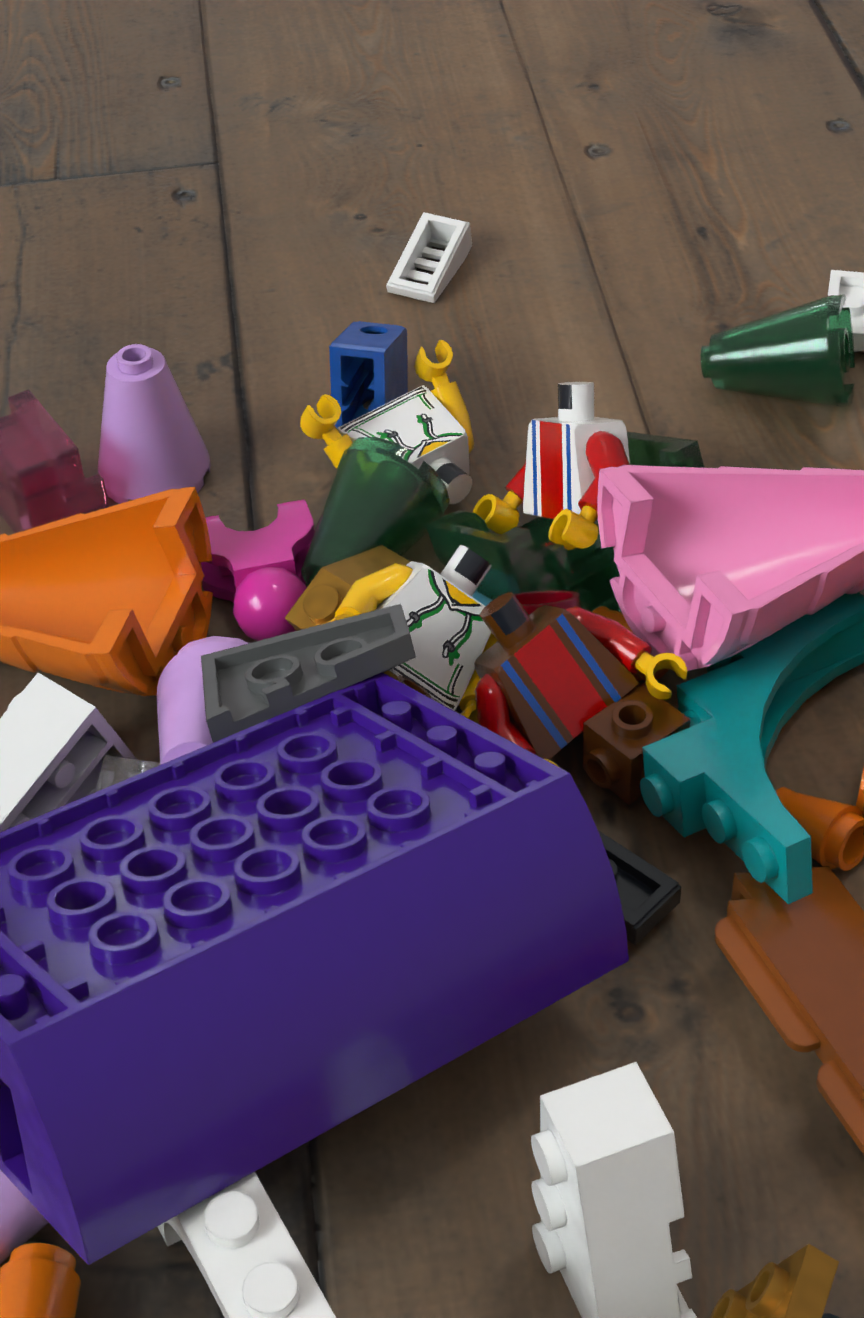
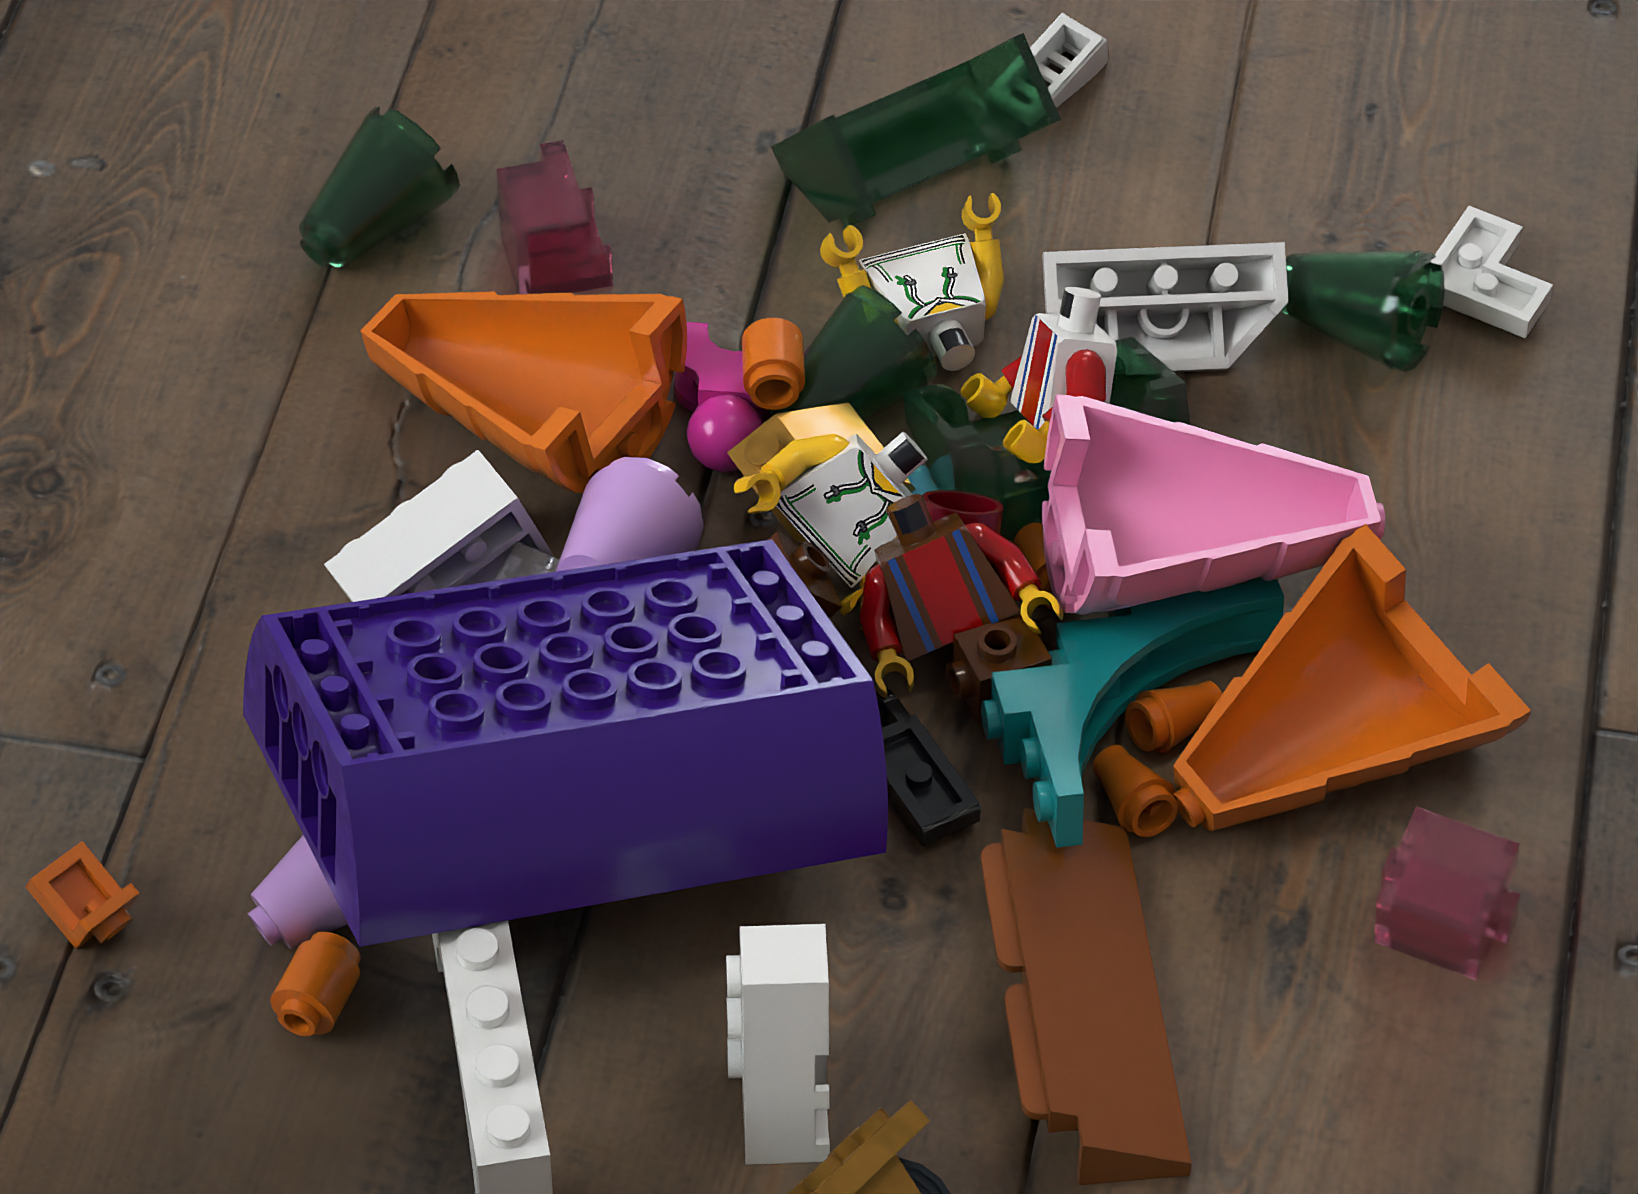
camera: 15 degrees right, 5 degrees up
(147, 429) = (672, 216): lavender cone -> none
(295, 668) = (701, 513): dark grey wing -> none
(300, 525) = (773, 363): none -> orange brick
(367, 365) = (920, 193): blue torso -> none
(398, 283) = (919, 132): none -> clear green windscreen
(650, 383) = (1182, 302): none -> white wedge
(812, 747) = (1169, 715): none -> orange cone

